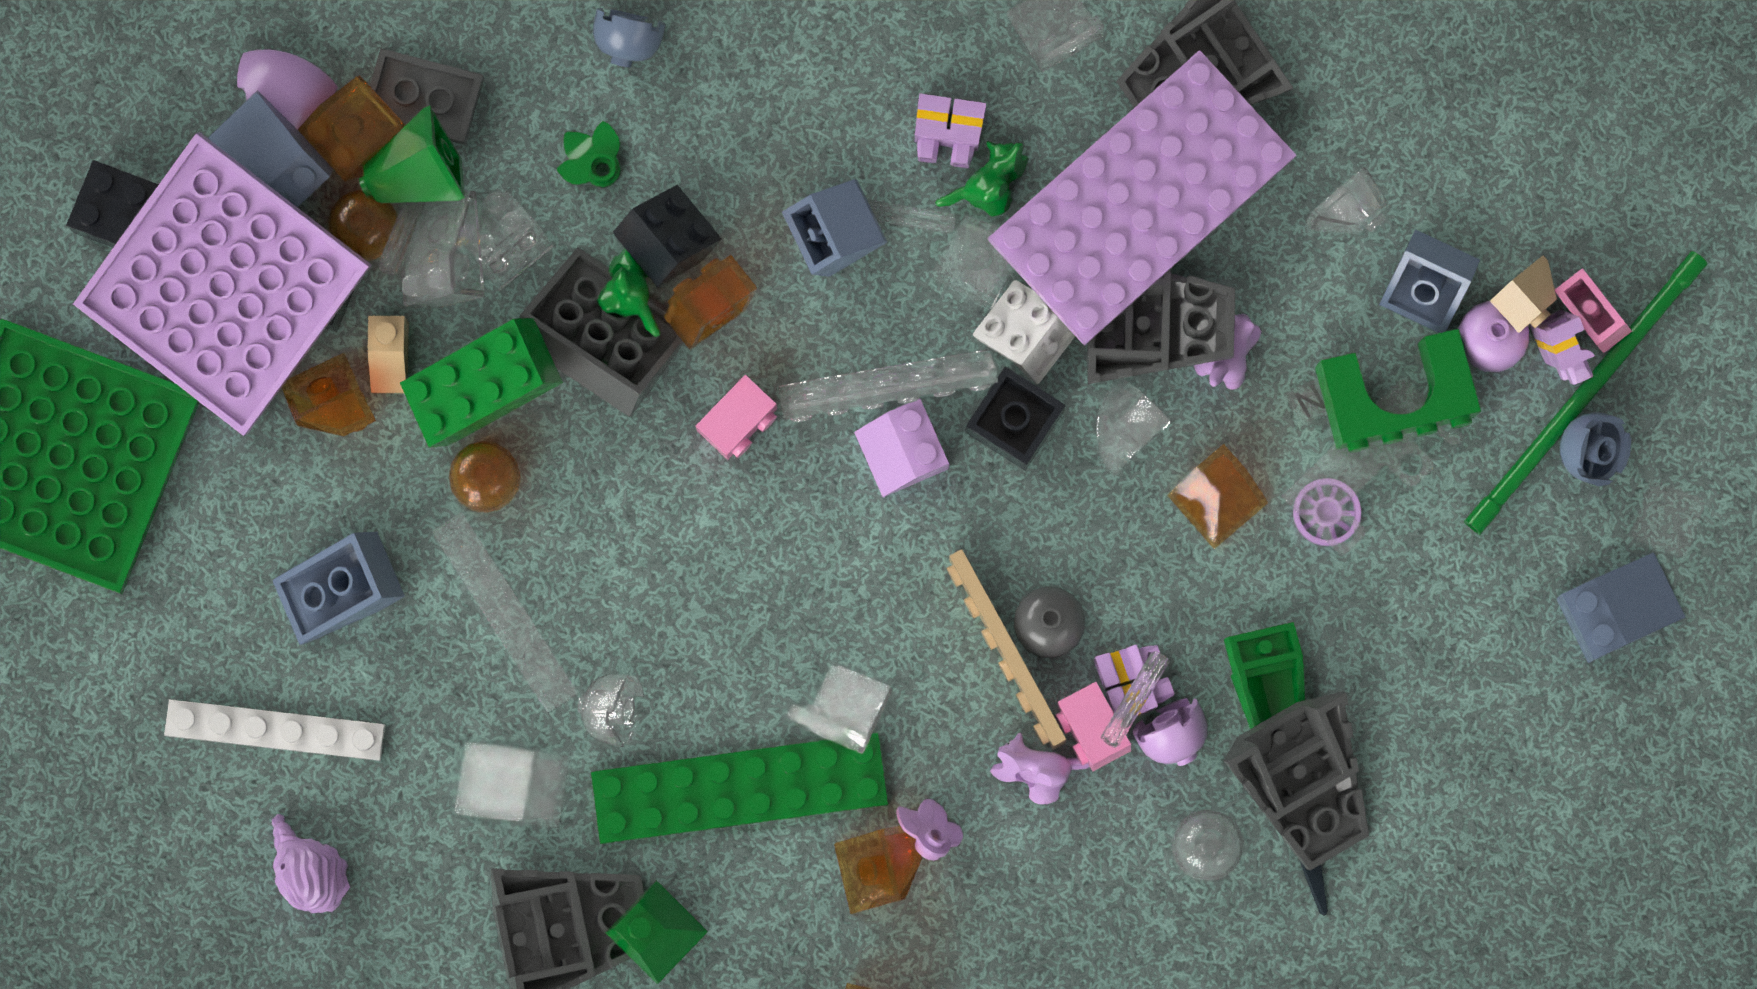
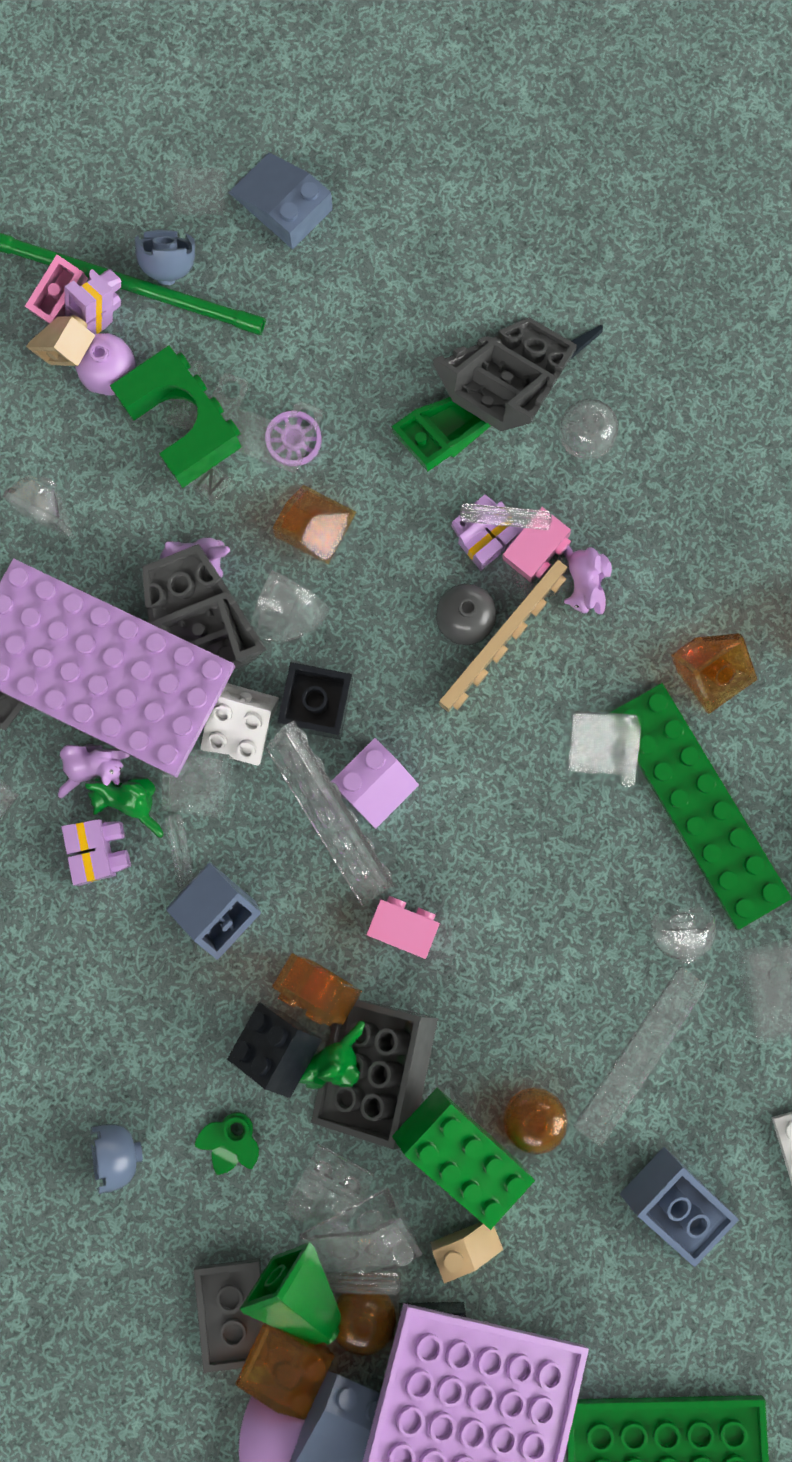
camera: 115 degrees left, 0 degrees up
(329, 398) = (526, 1286): clear orange slope -> none
(930, 829) = (669, 640): lavender plate -> none
(1044, 156) = (88, 762): none -> lavender animal
(1174, 733) = (514, 478): lavender cylinder -> none
(1429, 282) = (79, 424): sand blue slope -> none

